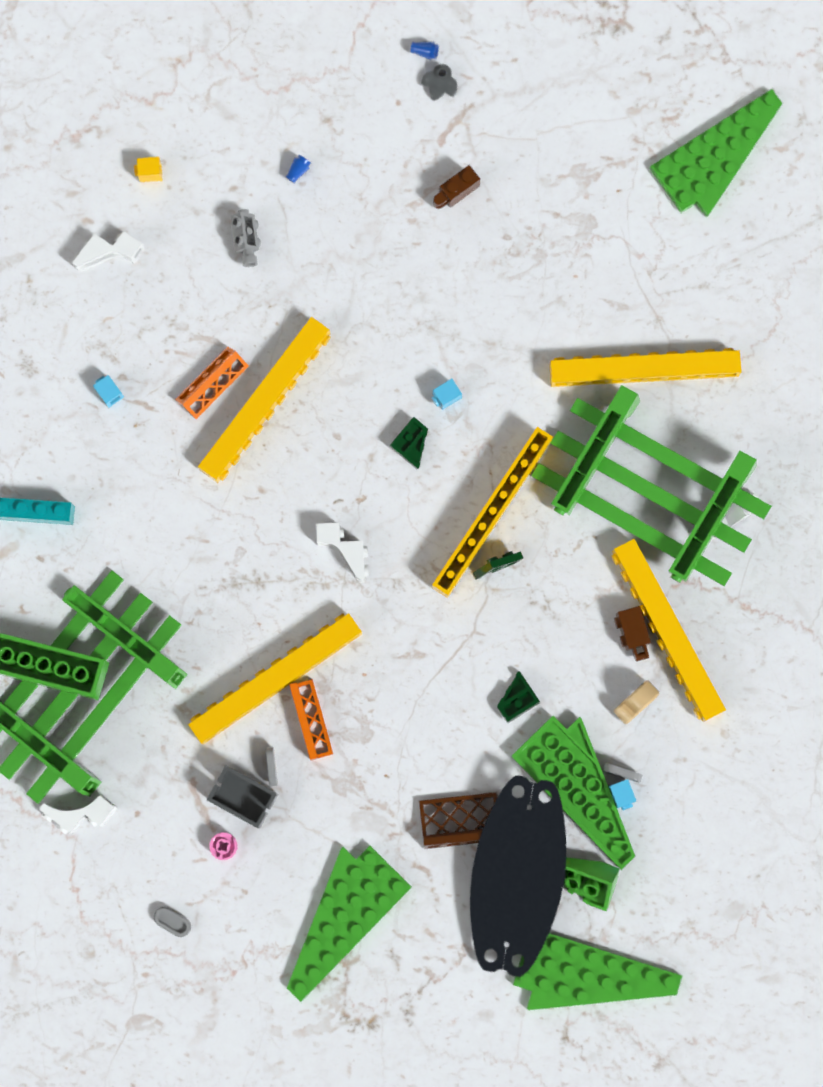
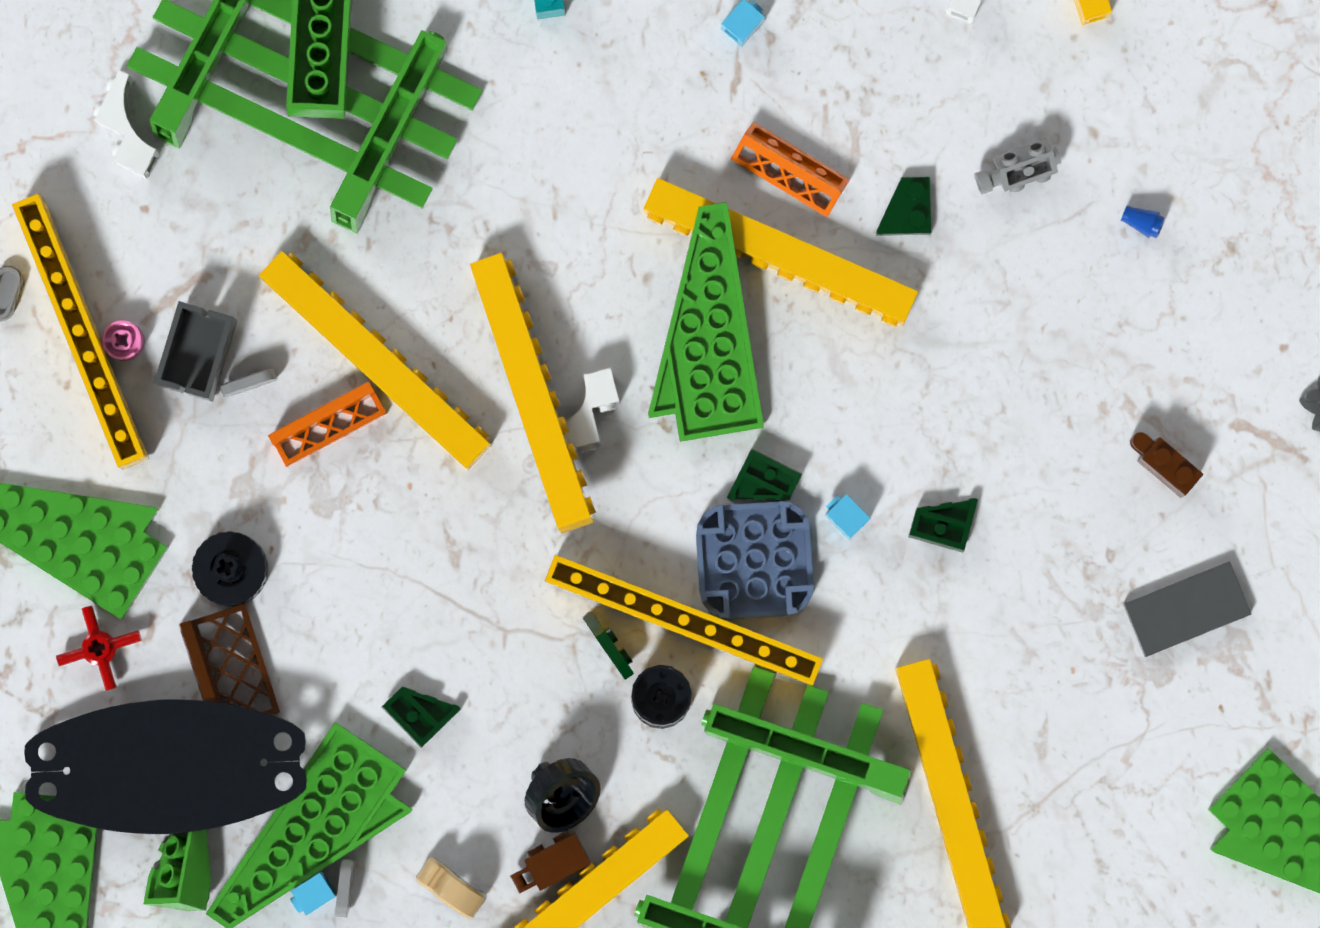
camera: 80 degrees right, 5 degrees up
(210, 873) = (80, 331): none -> yellow brick
(255, 313) = (909, 209): none -> dark green wing
(321, 459) = (707, 353): none -> bright green wing
(321, 577) = (532, 394): none -> yellow brick
(390, 792) = (209, 570): none -> black piece
(434, 910) = (108, 654): none -> red bar
(462, 460) = (754, 560): none -> sand blue tile
(465, 334) = (944, 524): none -> dark green wing
(544, 526) = (667, 681): none -> black wheel
(551, 197) = (1187, 609): none -> dark grey tile
(590, 608) = (570, 789): none -> black piece

